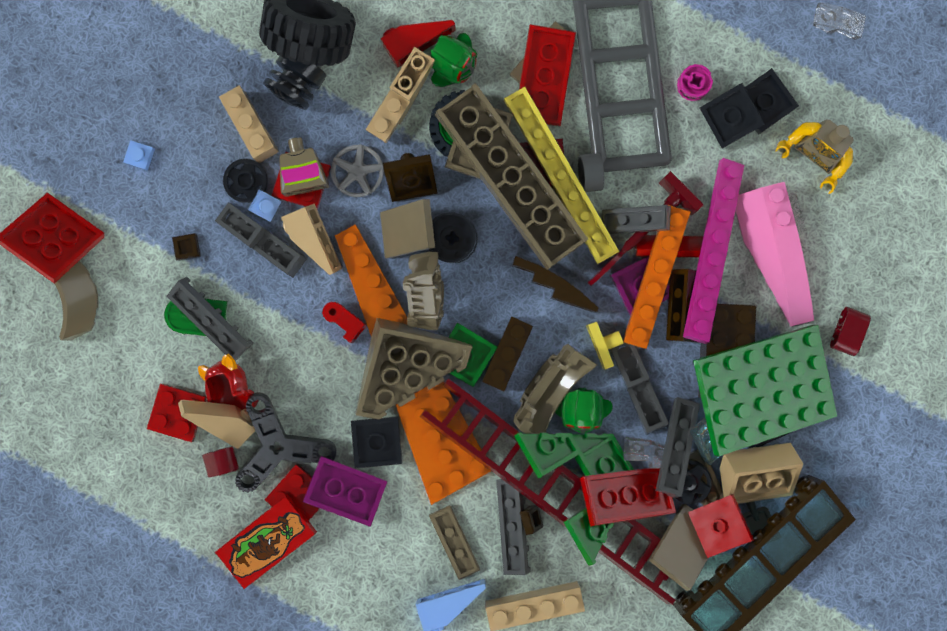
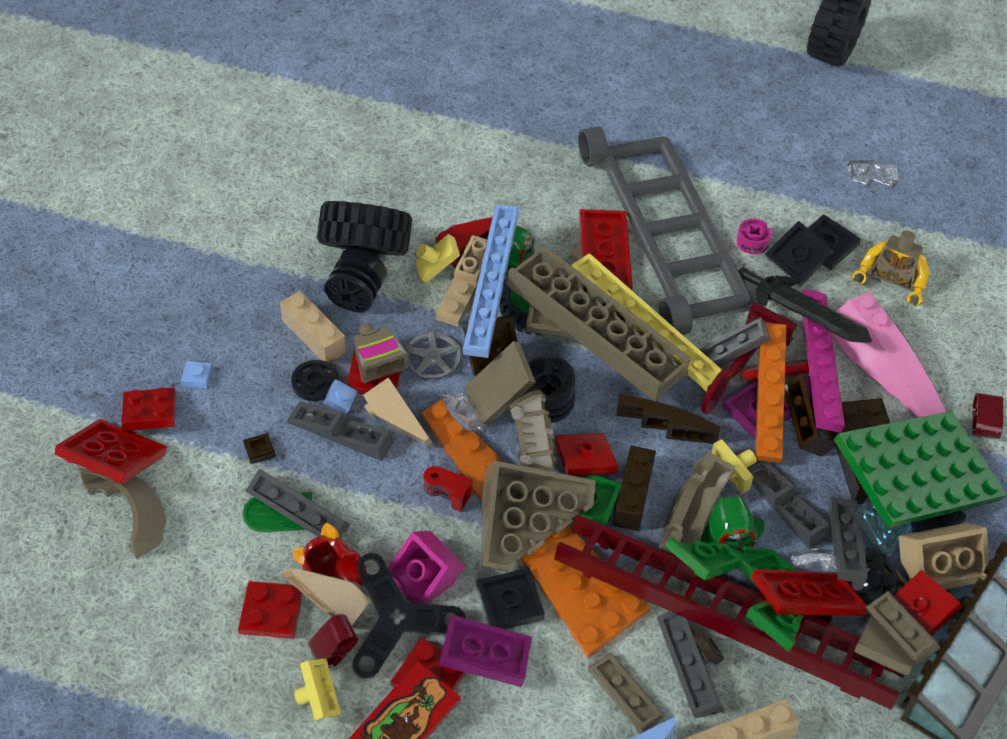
camera: 20 degrees left, 35 degrees down
(91, 190) = (148, 409): none -> red plate
(203, 502) = (318, 689): none -> light yellow tile
(310, 399) = (424, 567): none -> dark pink slope
(370, 243) = (463, 411): none -> clear slope
(377, 63) = (435, 259): none -> light yellow tile
(419, 112) = (491, 281): none -> light blue tile
(472, 310) = (585, 454): none -> red plate
(696, 546) = (903, 628): none -> dark tan tile
(697, 158) = (780, 290): none -> pearl dark grey sword

